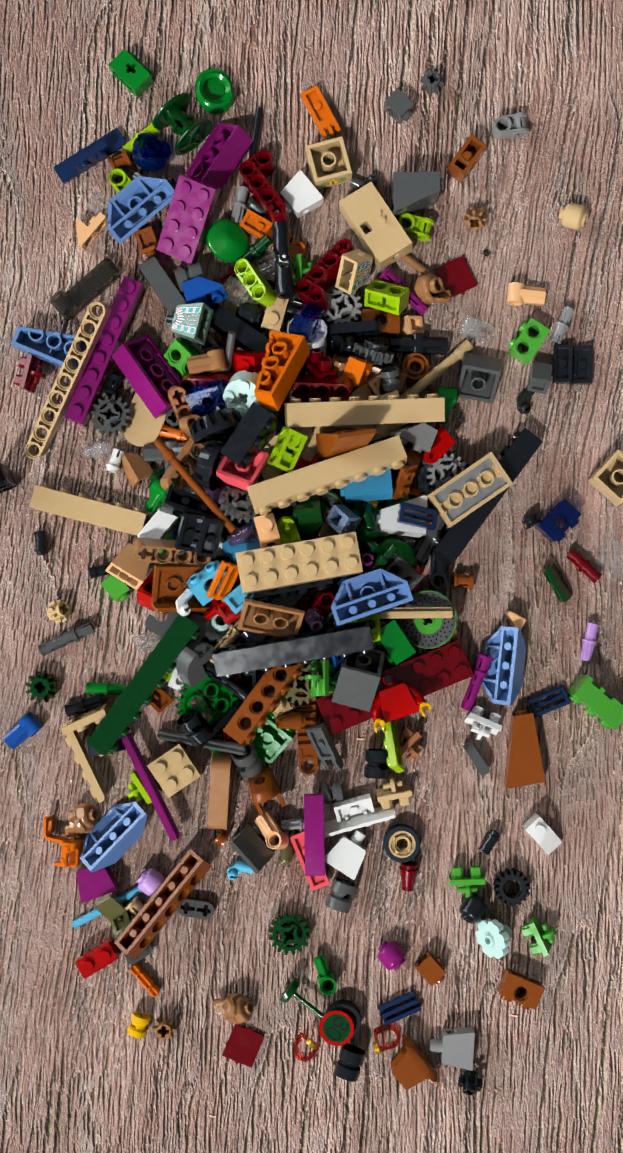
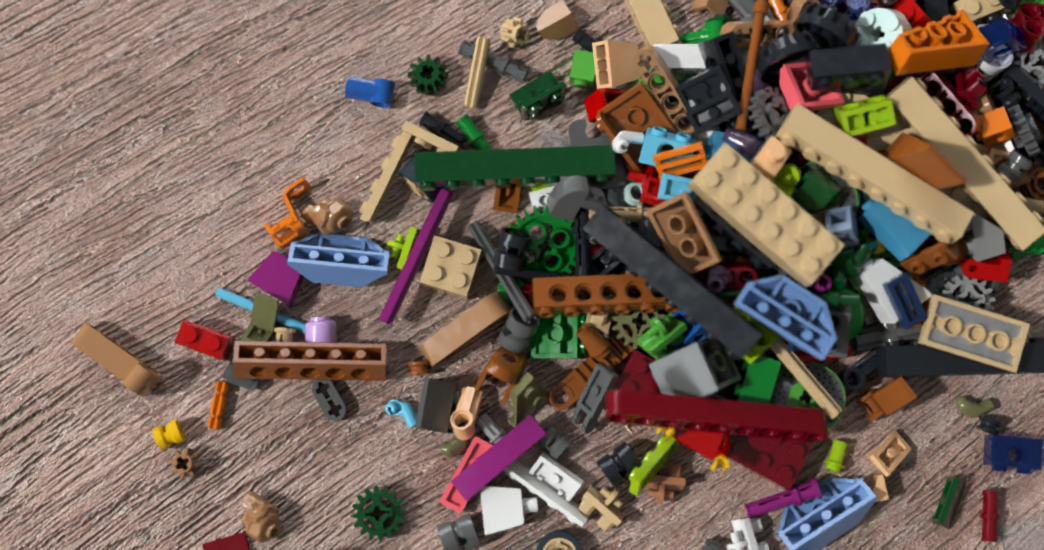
camera: 50 degrees right, 5 degrees down
(65, 655) = (477, 72): none -> tan axle
(73, 579) = (556, 22): none -> medium nougat brick
(84, 1016) = (133, 371): none -> medium nougat beam
(110, 628) = (538, 95): none -> dark green bracket
(291, 788) = (526, 397): none -> olive wing
(394, 688) = (715, 415): none -> dark red beam
(467, 566) = (893, 394): none -> dark orange slope
(476, 627) = (836, 456): none -> lime pin
(499, 595) = (889, 453): none -> light nougat slope
(513, 522) = (974, 409): none -> olive arm

